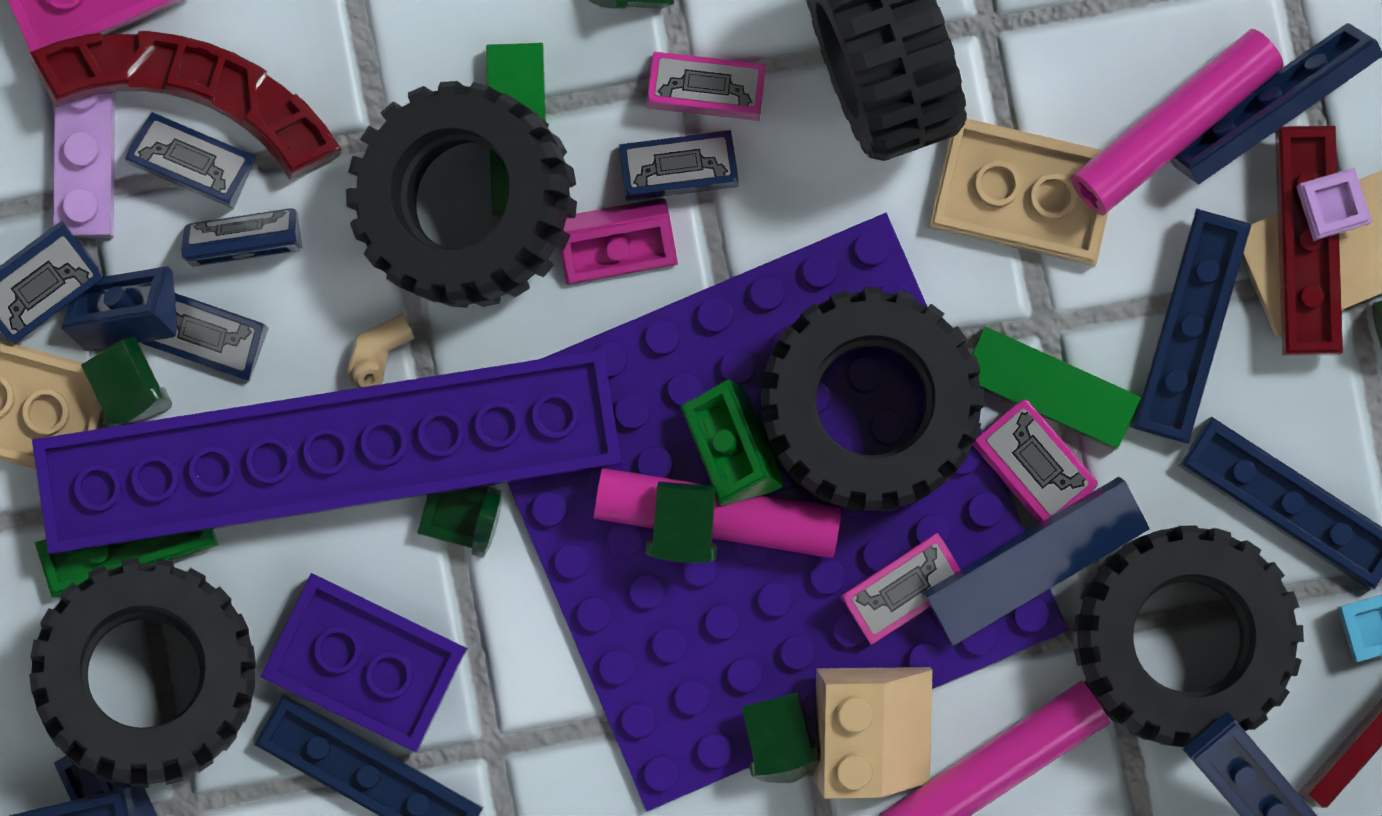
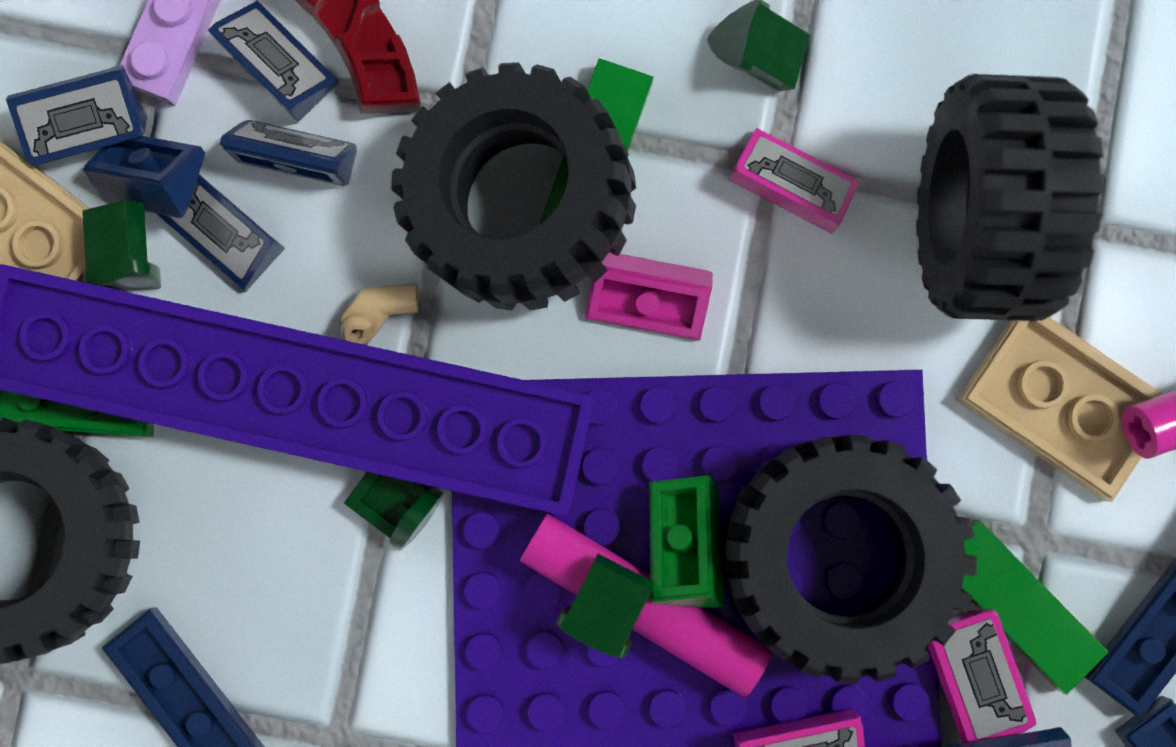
camera: 25 degrees right, 0 degrees up
(364, 662) = (239, 610): dark purple plate -> none
(678, 165) = (738, 246): slope -> none

